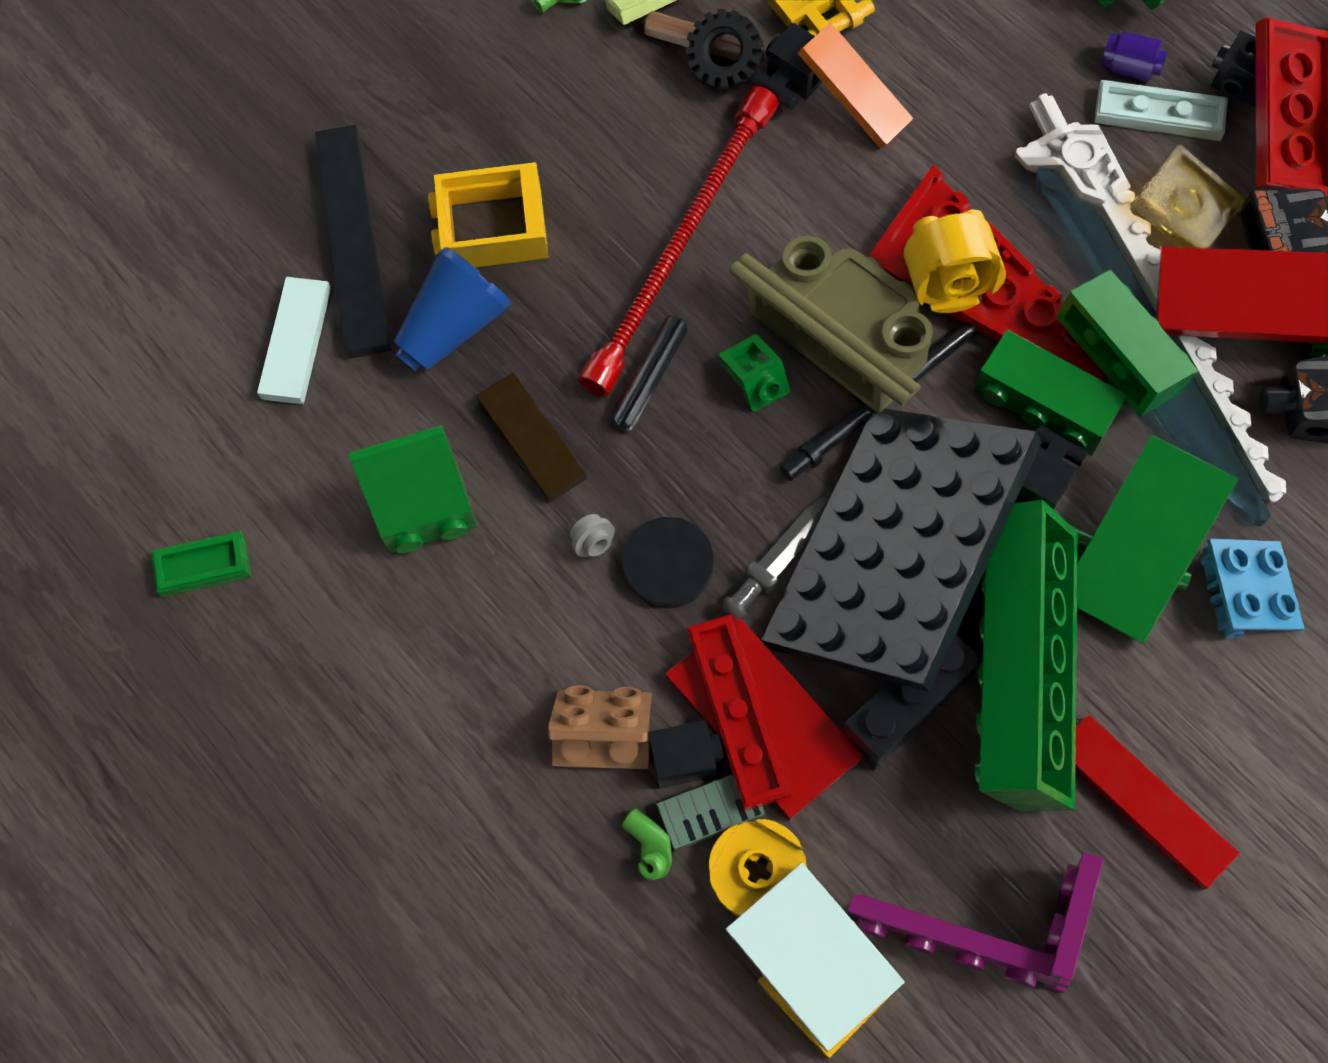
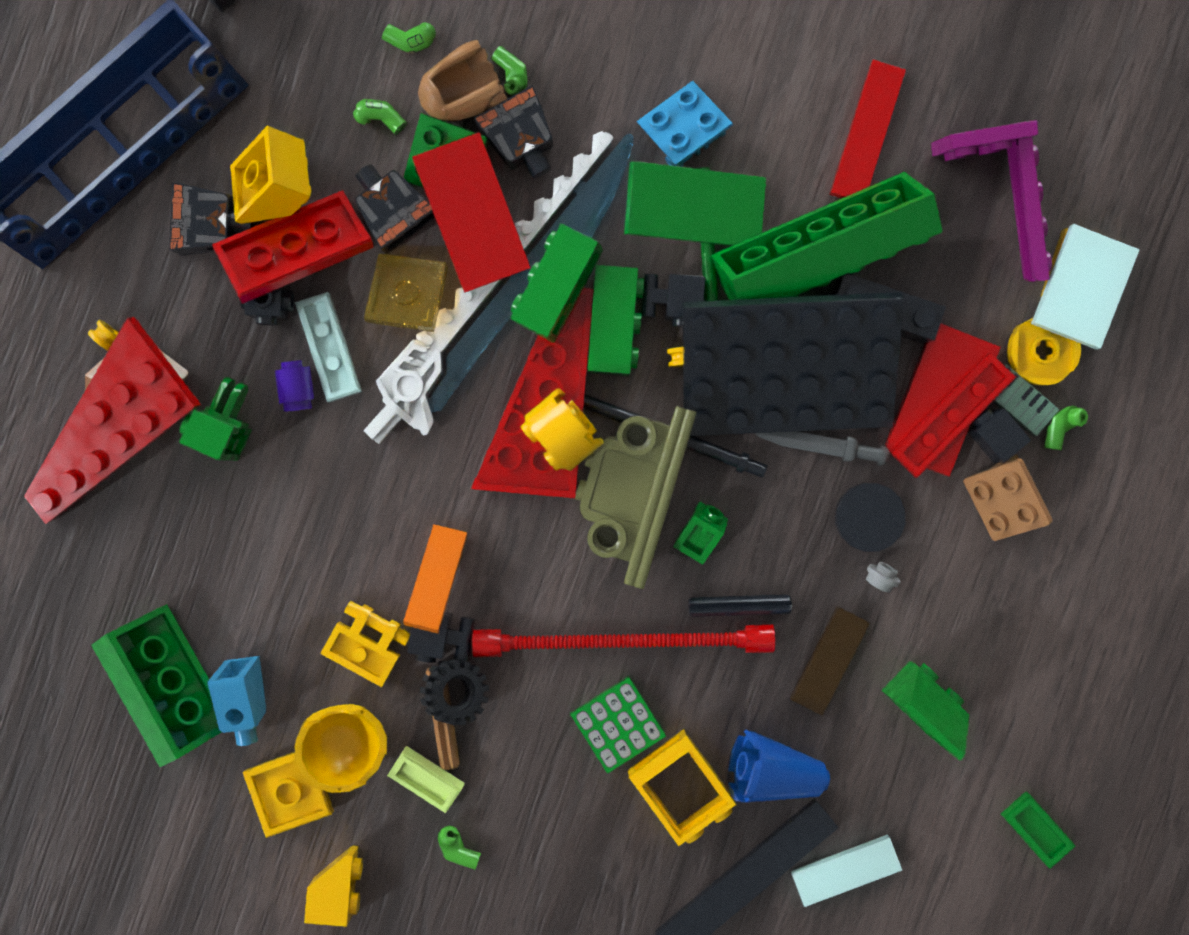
camera: 125 degrees left, 20 degrees up
(594, 194) = (618, 724): none -> tile

